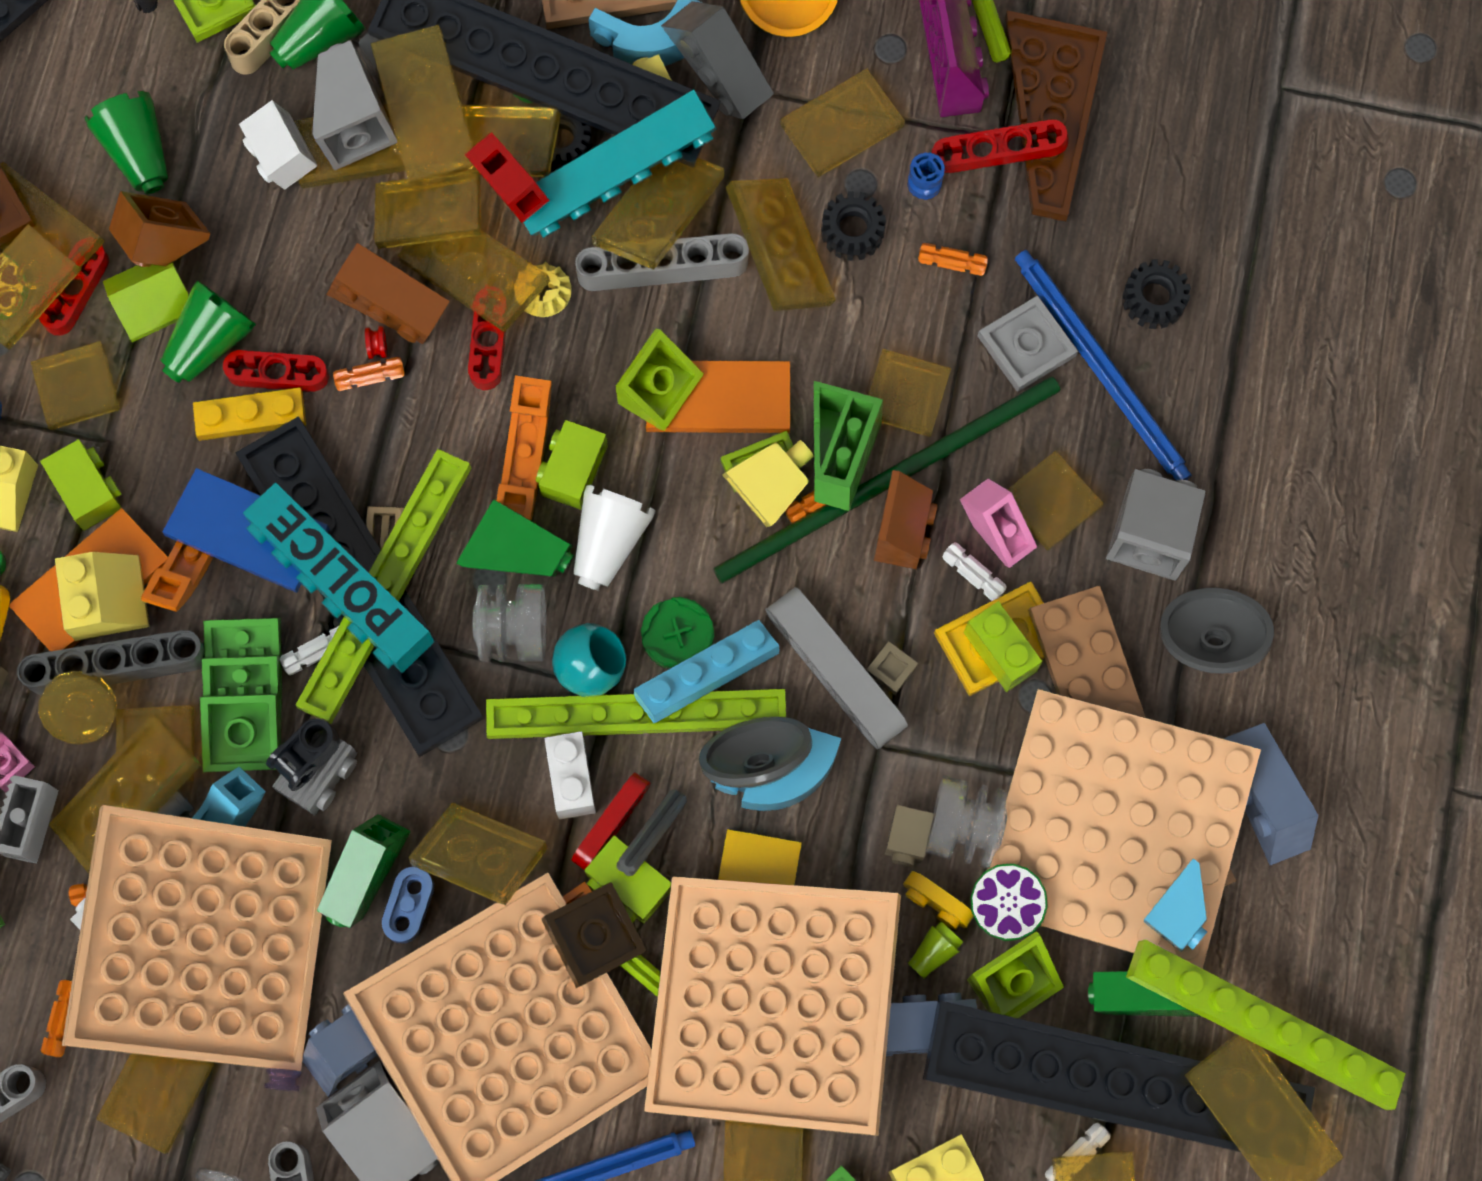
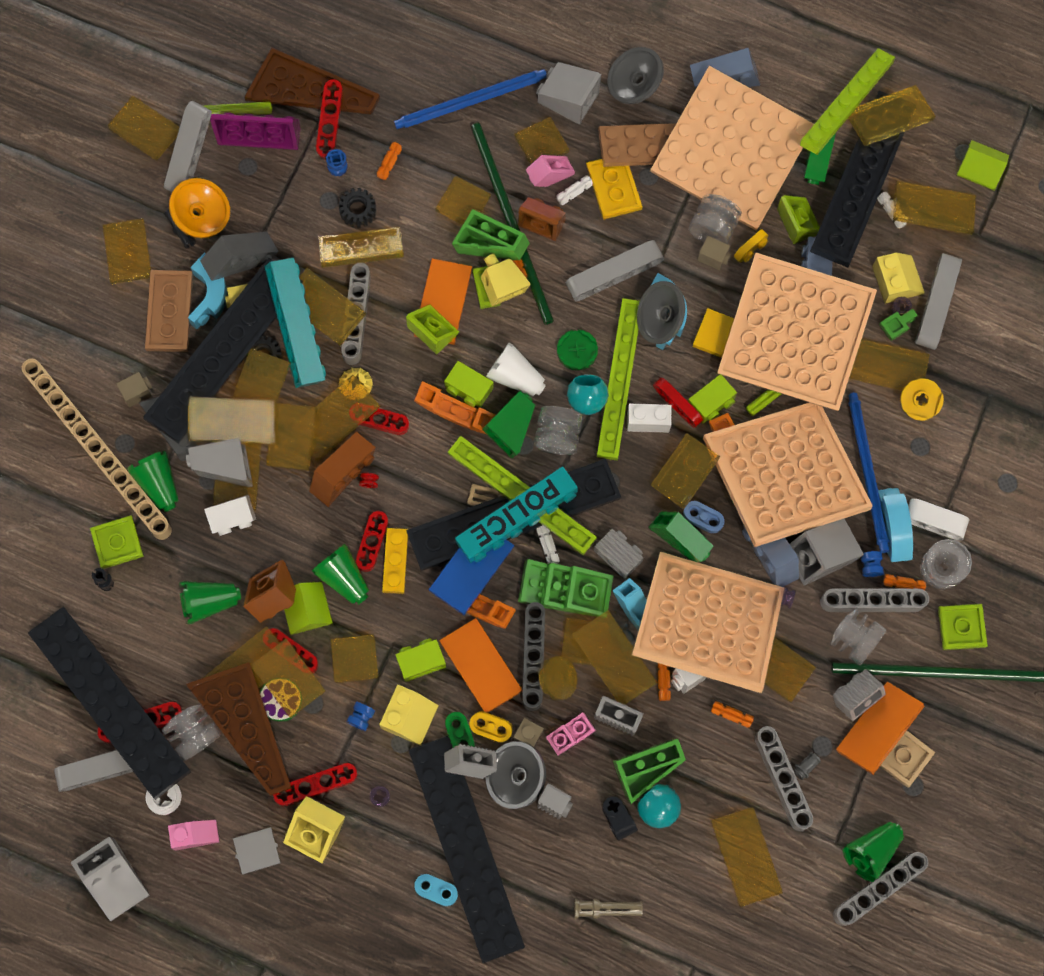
camera: 80 degrees left, 0 degrees up
(101, 594) = (493, 654): light yellow slope -> none
(302, 755) = (614, 551): black piece -> none
(368, 373) = (386, 488): orange axle -> none
(507, 177) = (291, 381): red brick -> none
(593, 934) = (743, 416): dark brown plate -> none
(651, 832) = (690, 379): dark grey axle -> none
(706, 671) = (604, 336): medium azure plate -> none
(842, 122) = (290, 201): clear yellow tile -> none
(892, 668) = (620, 242): dark tan plate -> none
(936, 948) = (775, 250): lime cone -> none
(1002, 646) = (623, 181): lime piece -> none
(1009, 902) = (761, 209): tile -> none
(1027, 343) = (449, 133): light grey plate -> none
(1159, 275) = (431, 51): black tyre -> none
(1181, 910) = (785, 122): medium azure slope -> none

